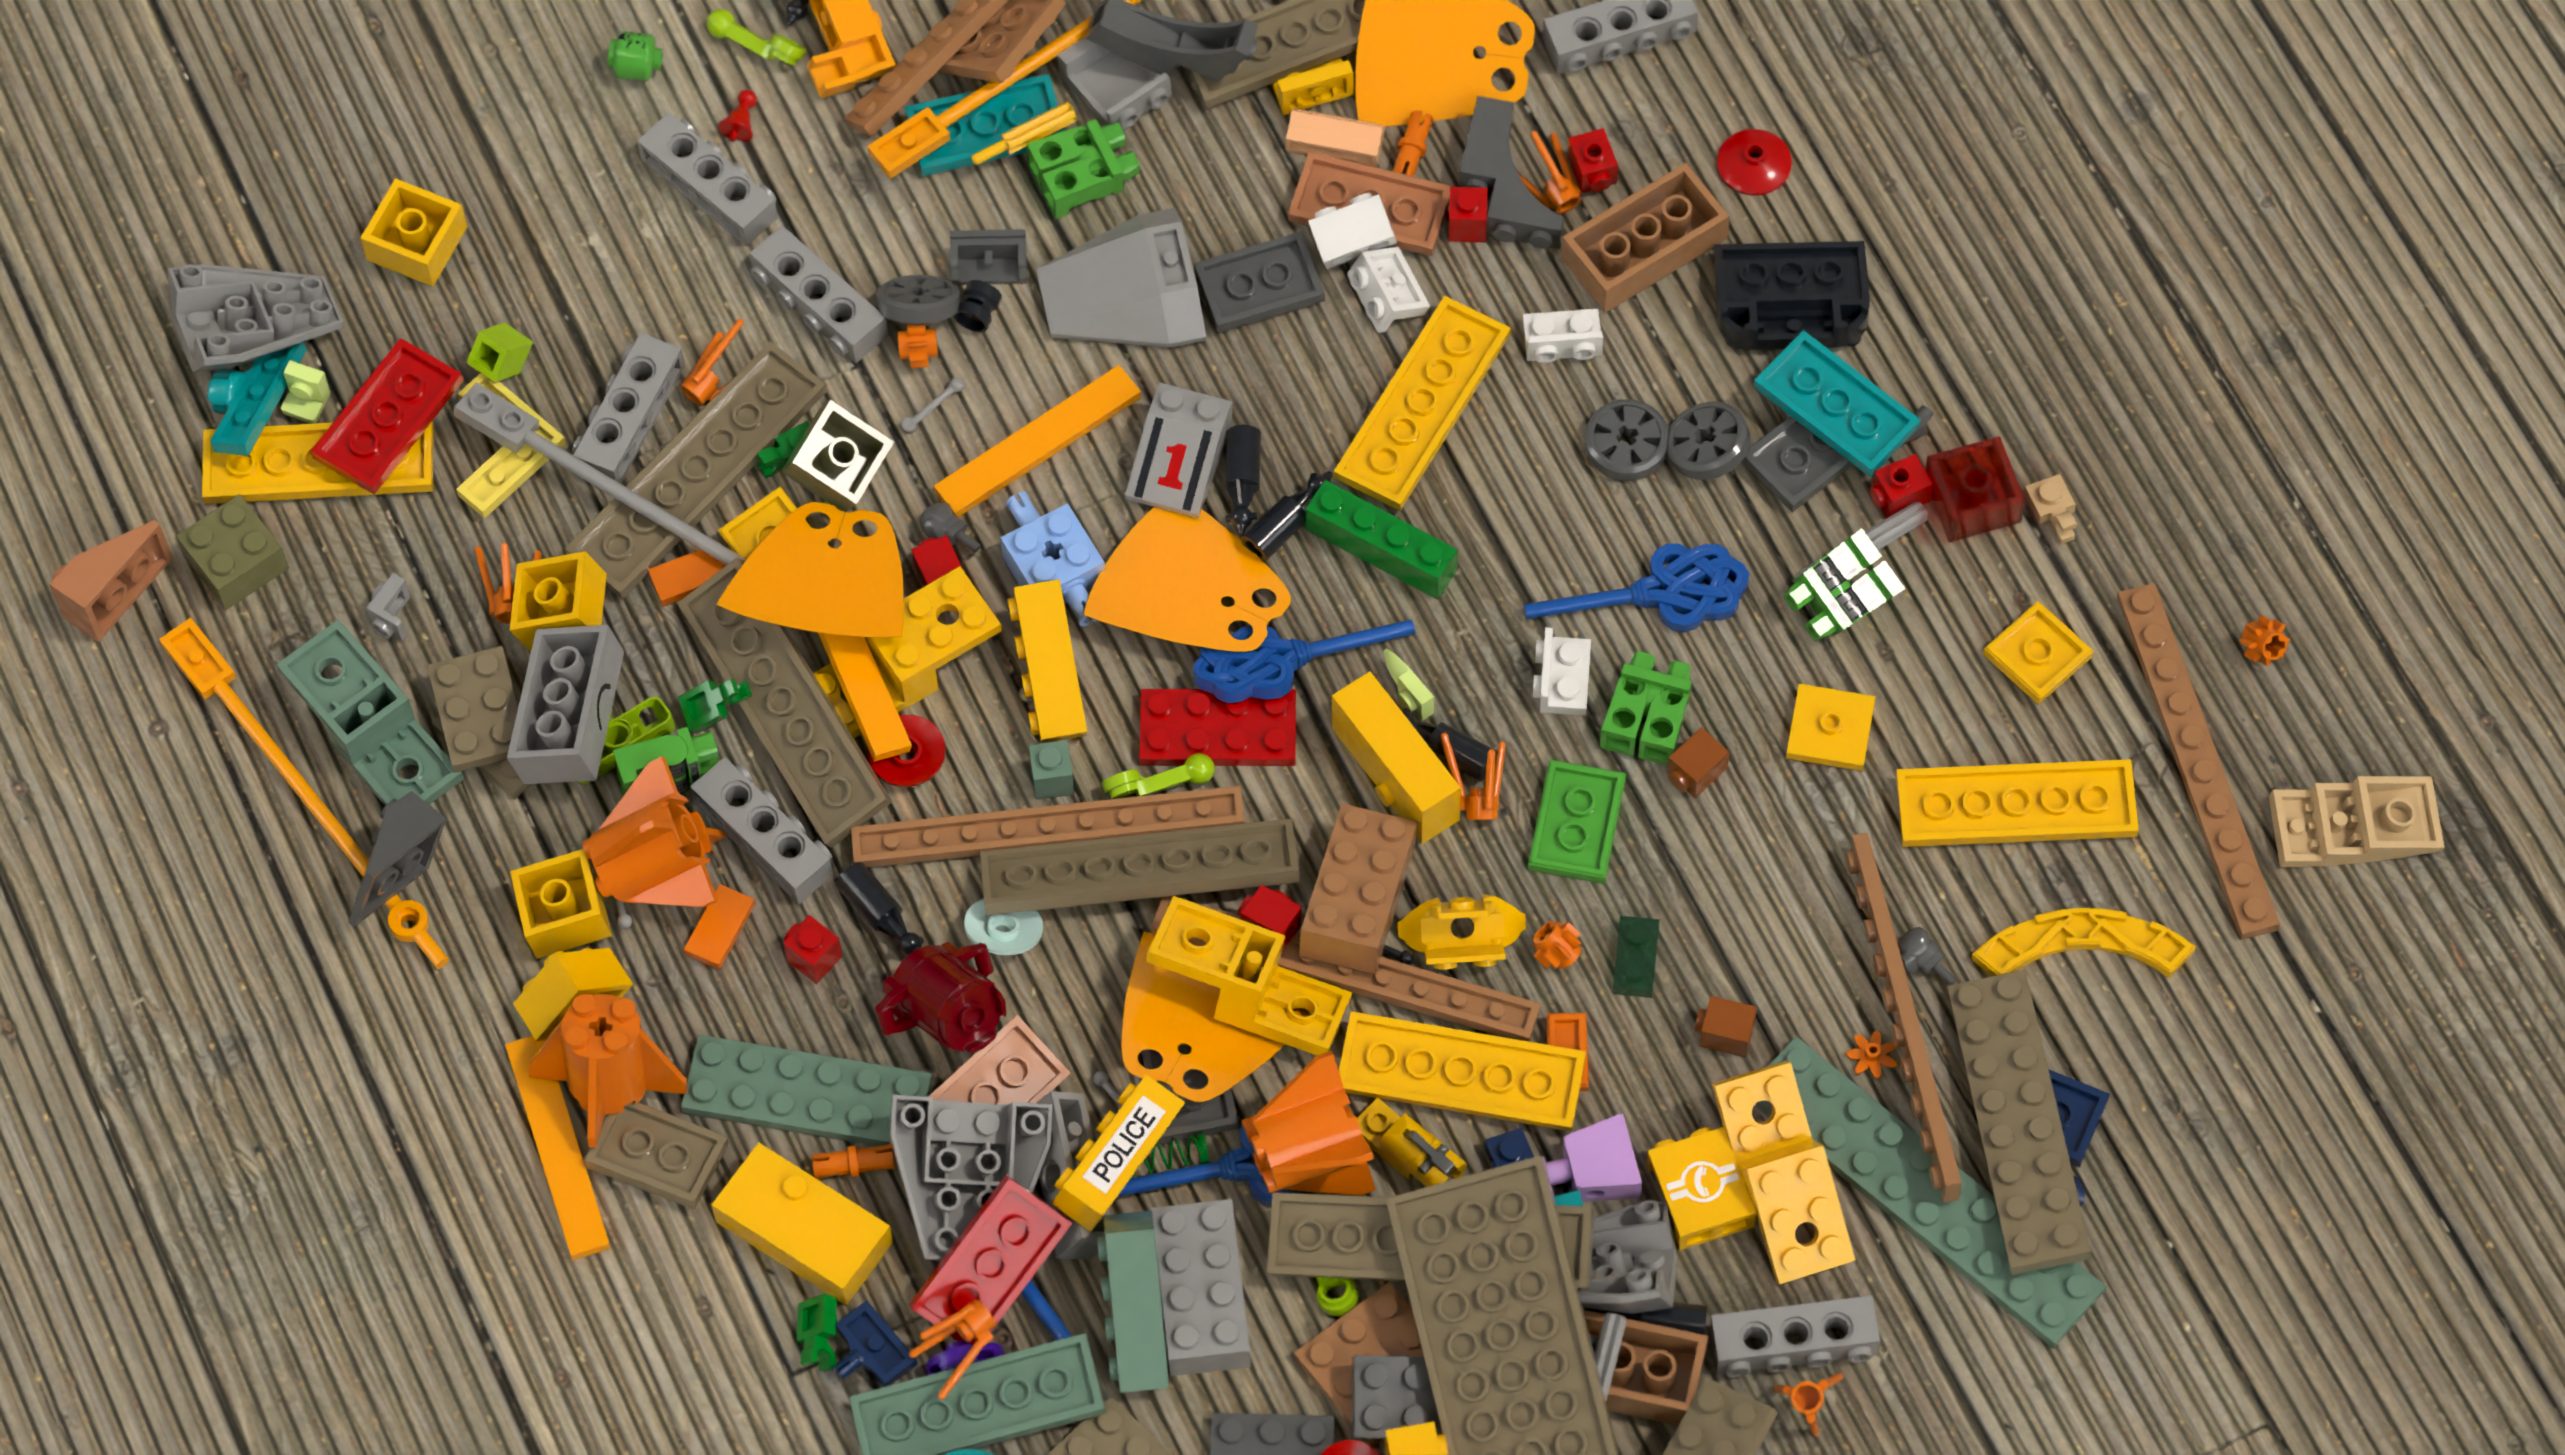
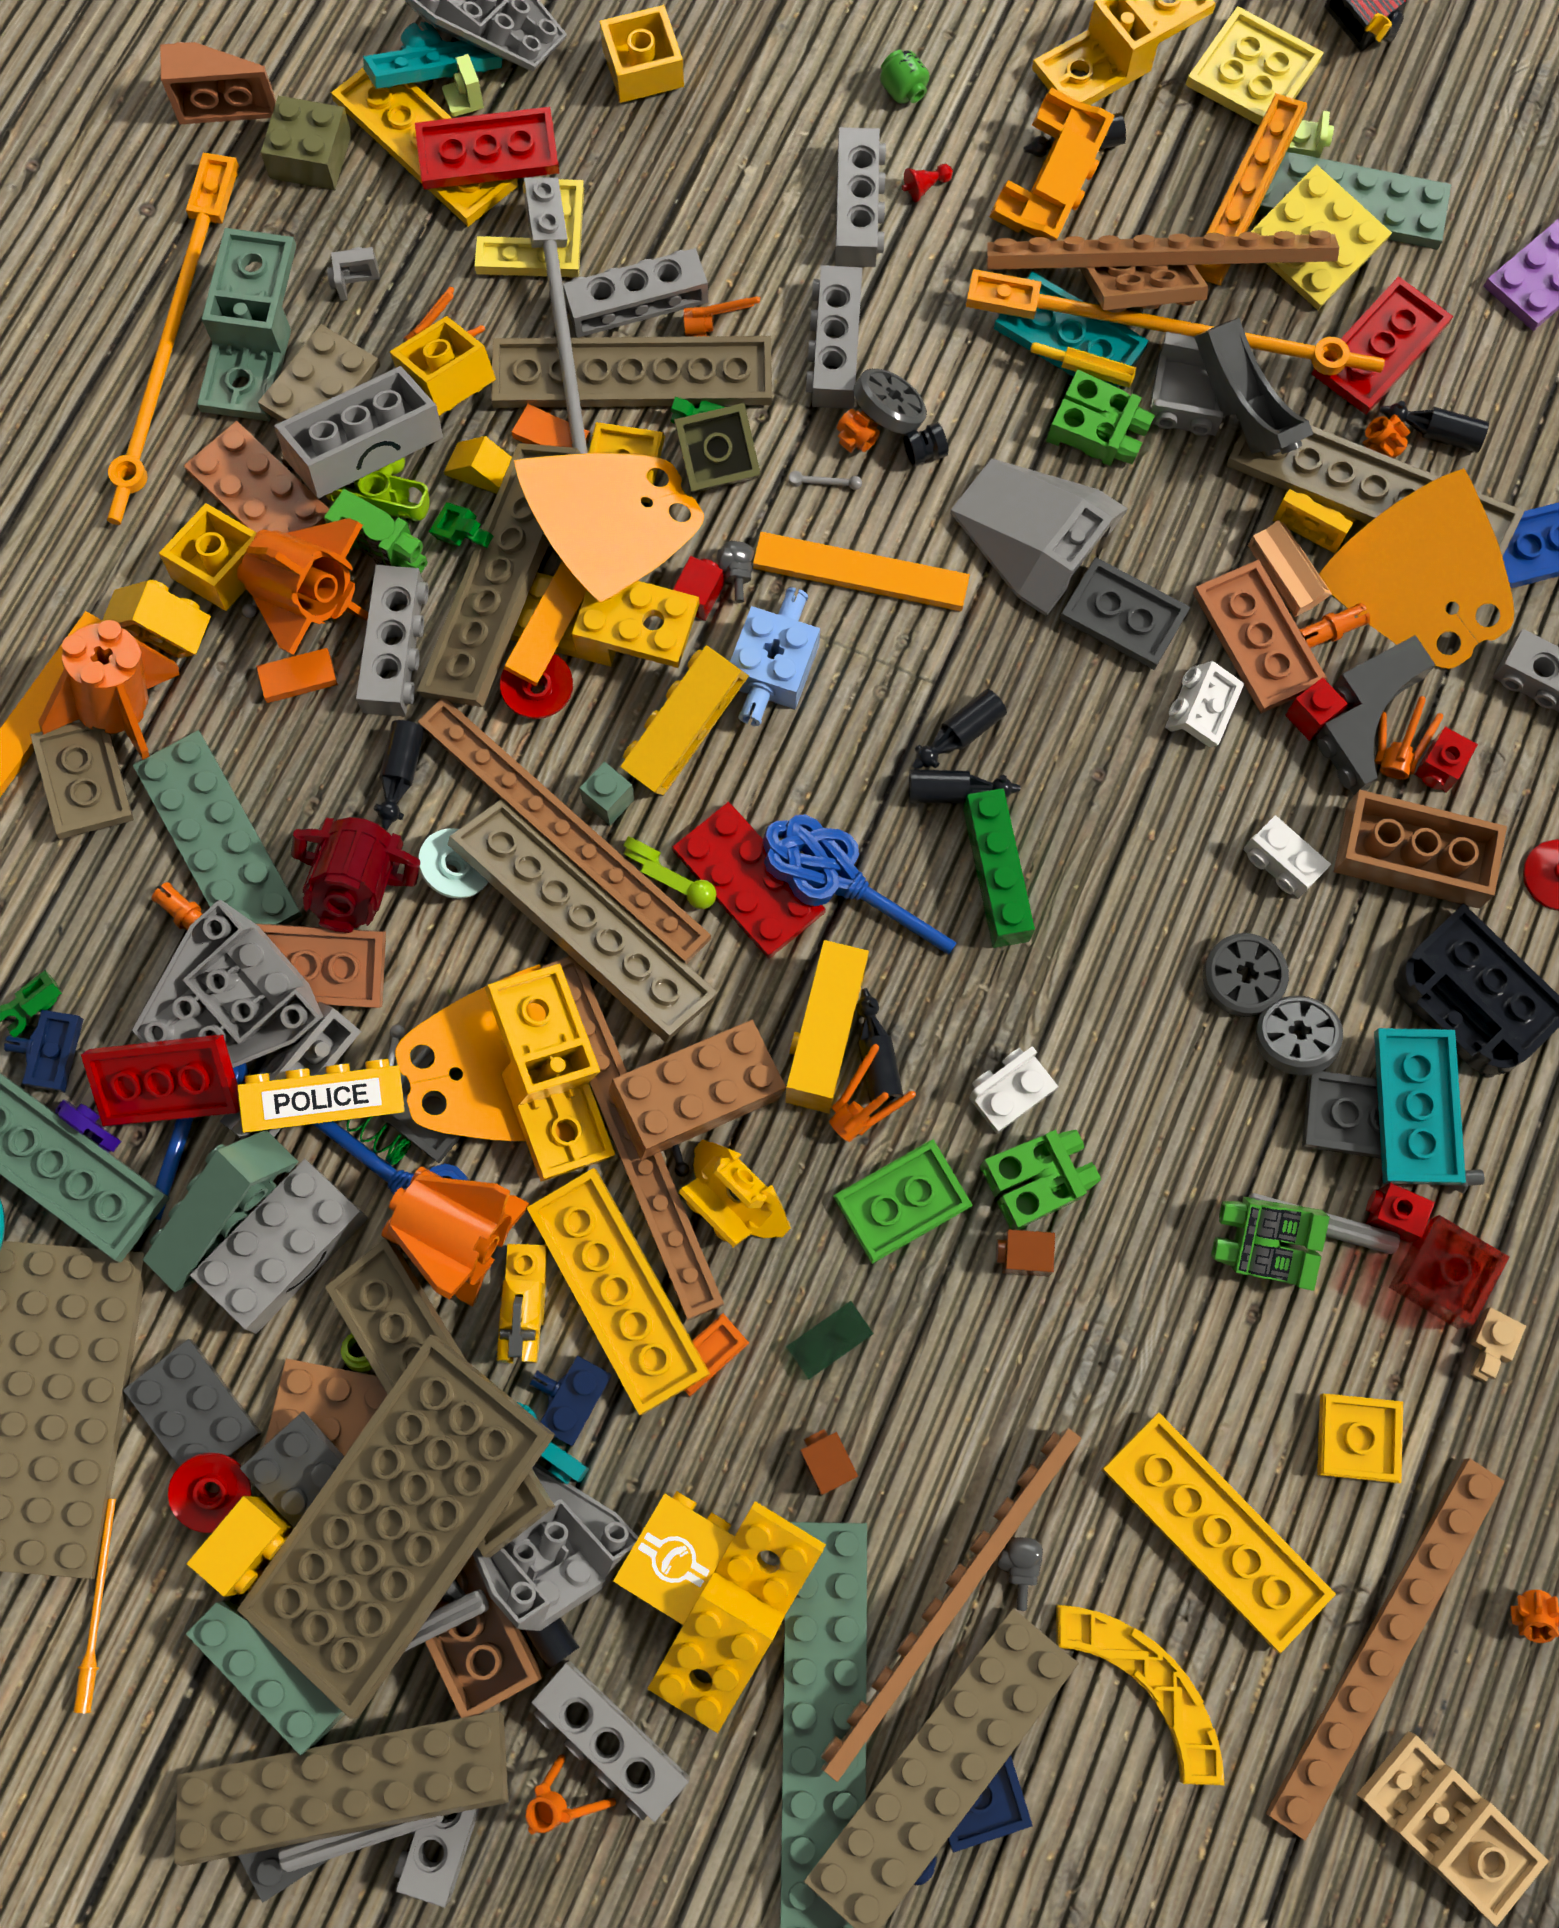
camera: 45 degrees right, 10 degrees up
(399, 853) = (148, 418): dark grey slope -> none
(499, 352) = (601, 177): lime brick -> none
(515, 831) = (254, 484): none -> nougat plate
(665, 647) = (478, 463): none -> yellow slope
(723, 24) = (1000, 157): lime piece -> none
(802, 1223) = (103, 921): yellow brick -> none
(812, 948) = (325, 749): red brick -> none
(971, 1323) = (98, 1106): orange plant -> none
(988, 256) = (971, 420): dark grey hinge -> none
(1172, 579) = (836, 749): light orange piece -> none
(1179, 450) = (939, 669): light grey slope -> none
(1272, 911) = (615, 1045): red brick -> none
(1352, 229) = (1222, 639): white brick -> none
(1411, 691) = (894, 994): yellowish green plate -> none
(1422, 403) = (1136, 804): yellow plate -> none
(1557, 944) = (782, 1274): orange gear -> none
(1599, 1162) = (628, 1458): lavender torso -> none
(1681, 584) = (1133, 1095): blue piece -> none
(1830, 727) = (1151, 1328): yellow plate -> none
(1870, 1059) = (898, 1590): orange plant -> none

